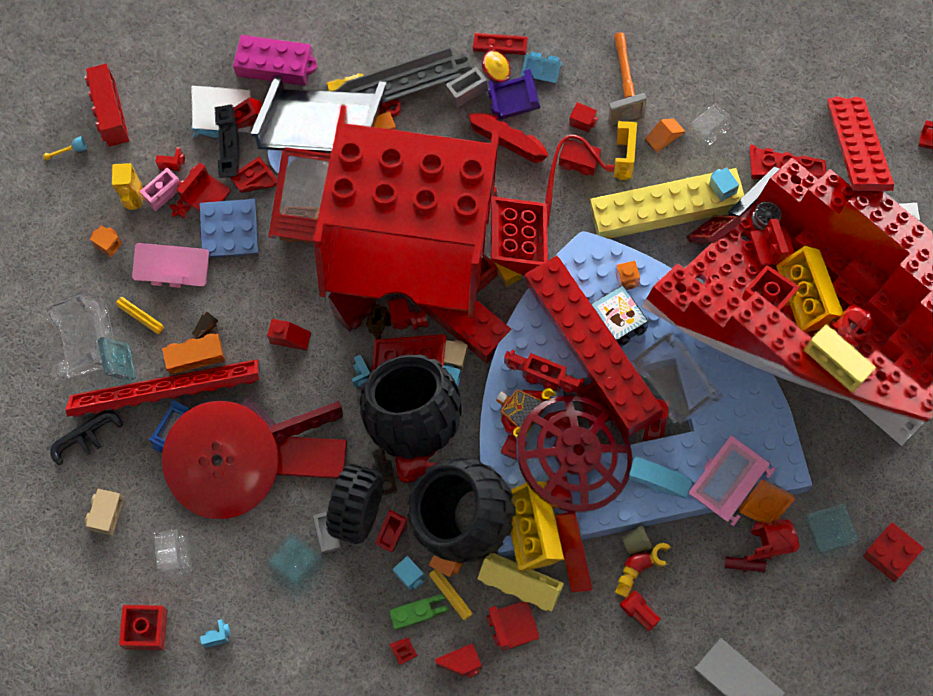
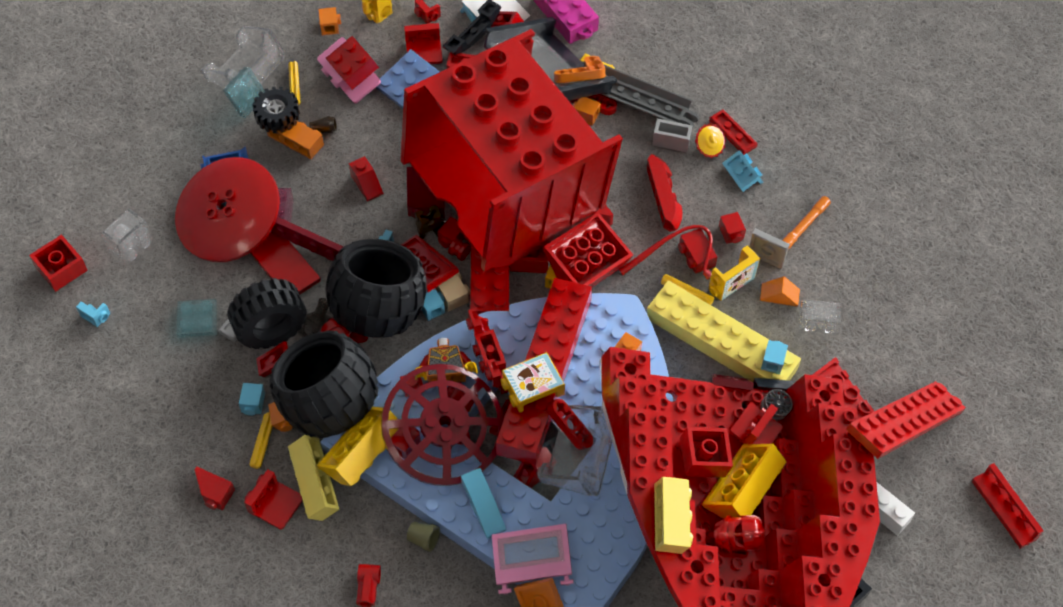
camera: 40 degrees right, 10 degrees down
(82, 431) = (170, 115): black piece -> none
(104, 511) = (126, 175): tan brick -> none
(160, 189) = (394, 19): bright pink brick -> none
(161, 340) = (276, 109): none -> black wheel
(164, 387) = (251, 136): red plate -> none
(172, 256) = (352, 62): none -> red brick
(180, 209) = (397, 44): red plant -> none
(361, 92) = (592, 69): none -> orange beam
(403, 650) = (188, 444): red slope -> none
(416, 612) = (227, 429): bright green hinge -> none
(514, 96) = (699, 171): dark purple panel -> none
(573, 552) = (369, 494): red slope -> none
(584, 199) = (696, 292): none -> yellow axle
(607, 362) = (532, 381): none -> panel
(621, 315) = (584, 372): panel -> none
(636, 564) = (404, 551): yellow piece -> none
(668, 366) = (565, 410): none -> red beam

